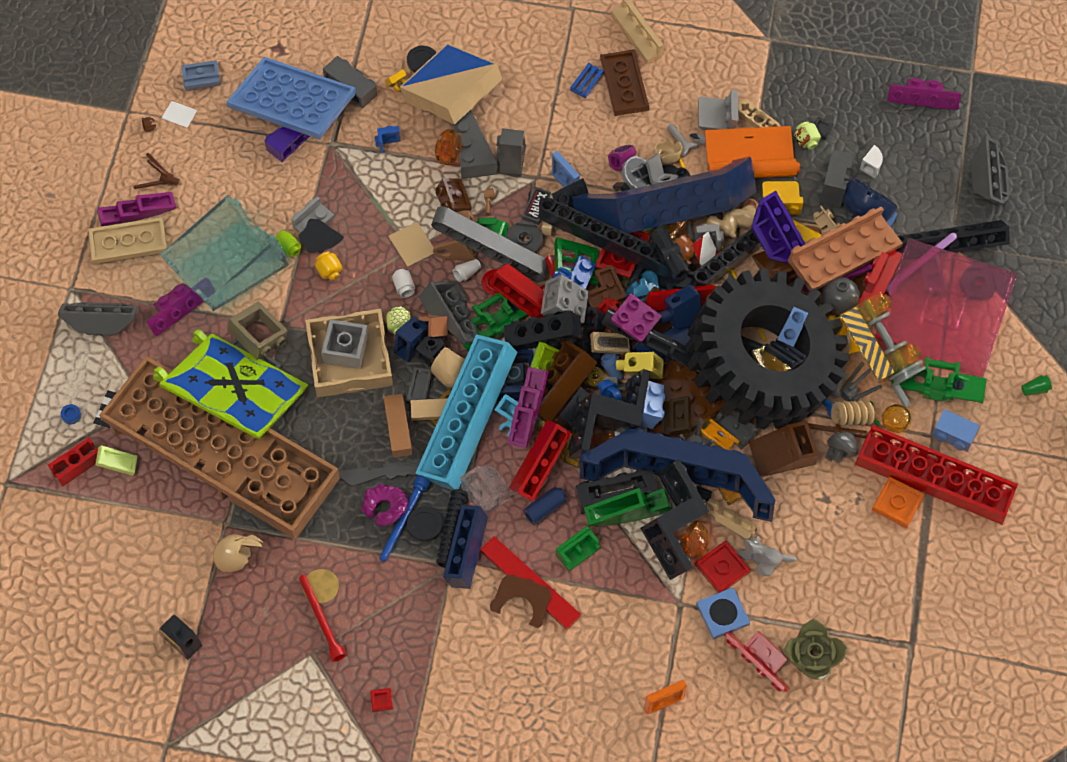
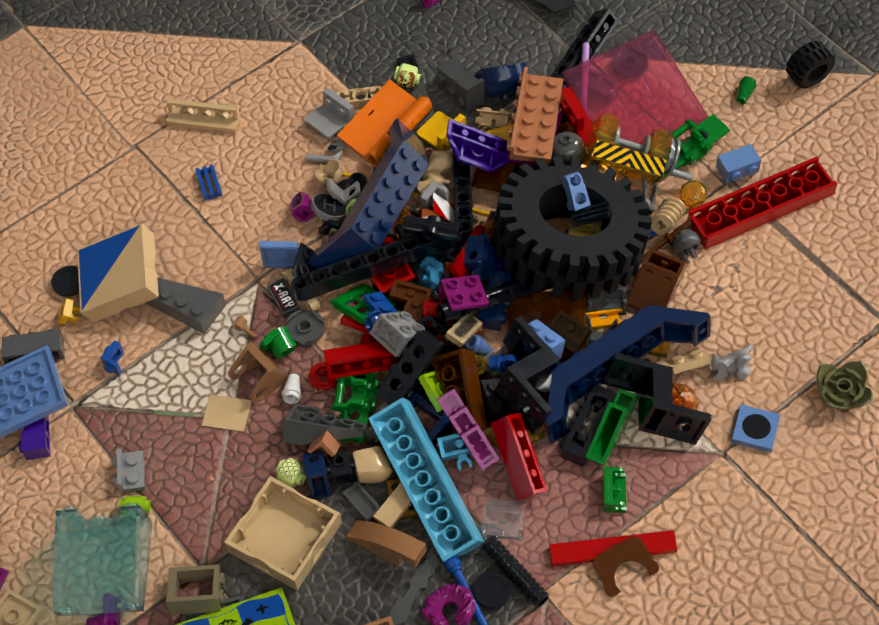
camera: 45 degrees left, 5 degrees down
(319, 236) = (151, 477): black sticker -> none
(328, 266) = (187, 489): yellow head -> none
(345, 344) = (275, 528): light grey brick -> none
(403, 283) = (259, 444): white brick -> none
(448, 147) = (171, 318): clear orange tile -> none
(453, 194) = (216, 351): reddish brown bracket -> none
(465, 547) = (543, 571): dark blue brick -> none
(489, 243) = (292, 349): beam -> none
(511, 151) = (224, 275): dark grey wedge -> none
(516, 374) = (427, 418): black tile -> none
(545, 505) = (556, 485): dark blue brick -> none
(624, 82) = (237, 159): reddish brown tile -> none
(637, 361) = (506, 316): light yellow torso -> none
(665, 697) = (800, 519): orange tile -> none
(722, 567) = (717, 398): red tile -> none
(763, 655) = (816, 424): bracket -> none
(872, 162) = (470, 52): white brick -> none
(898, 502) = (761, 244): orange tile -> none

